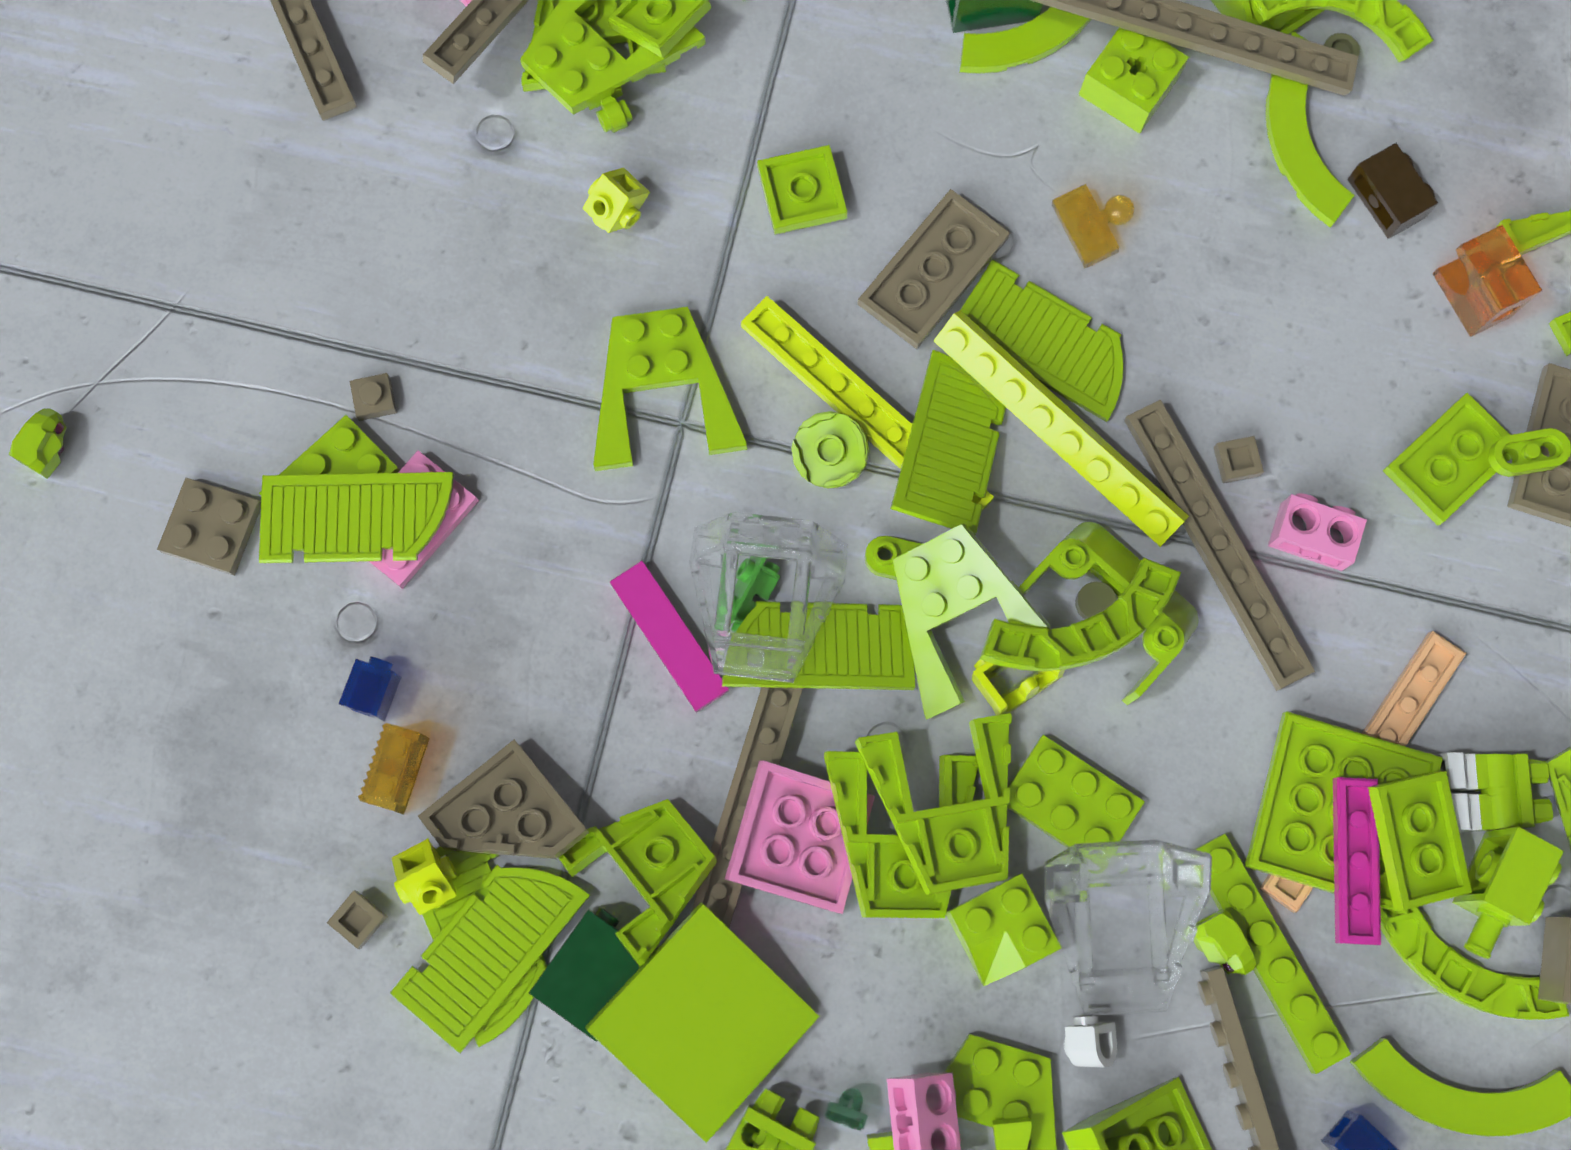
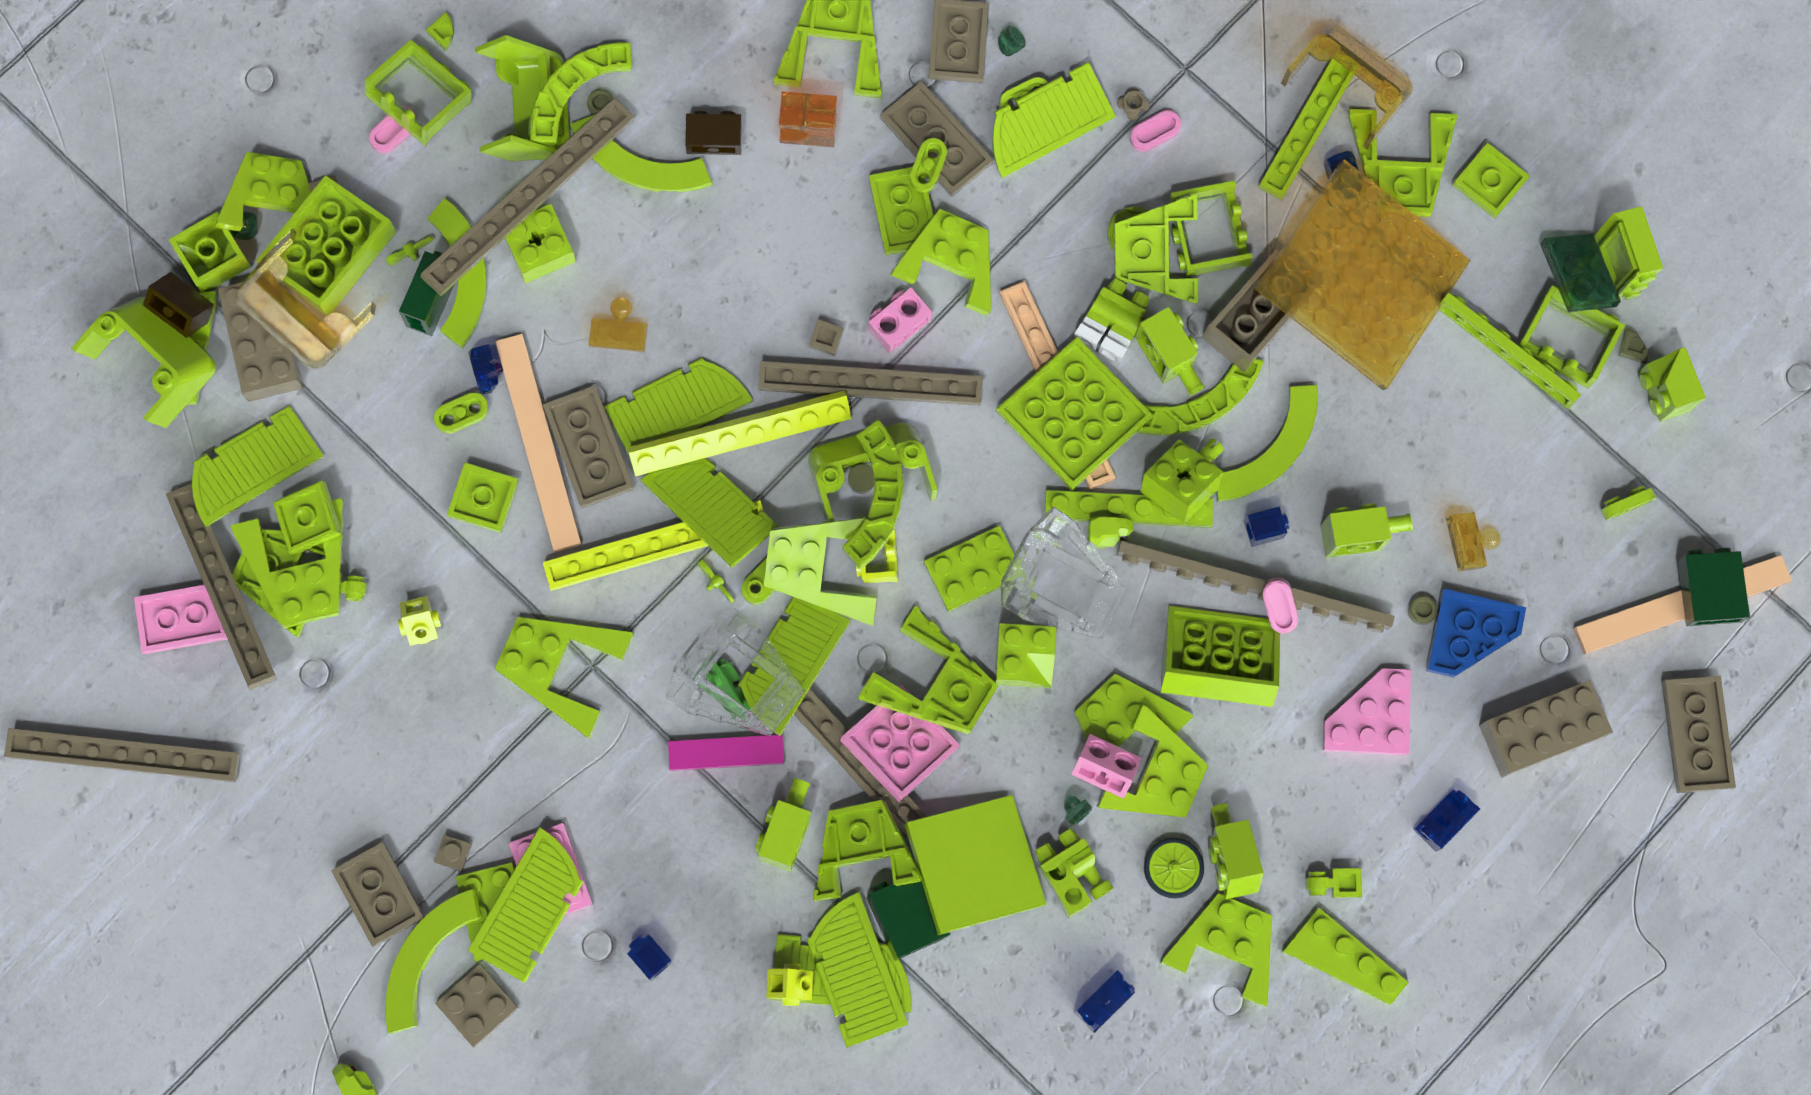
camera: 65 degrees left, 0 degrees up
(231, 423) = (416, 953): none -> lime tile
(277, 342) = (377, 894): none -> dark tan plate
(357, 919) = (789, 1043): dark tan plate -> none
(394, 768) = (709, 969): clear yellow brick -> none
(504, 811) = (776, 914): dark tan plate -> none
(610, 759) = (786, 828): none -> lime brick
(830, 450) = (668, 582): lime tile -> none
(865, 504) = (715, 581): none -> lime piece
(886, 110) = (460, 411): none -> lime plate
(902, 214) = (538, 443): none -> light nougat tile
(953, 104) = (486, 367): none -> clear blue rock
(957, 842) = (958, 651): lime wing -> none
(1090, 1042) = (1119, 644): white plate -> none
(1353, 1002) = (1184, 479): none -> lime brick
(1356, 863) = (1106, 425): dark pink tile -> none
(1419, 840) = (1115, 381): lime plate -> none
(1450, 546) = (956, 247): none -> lime wing

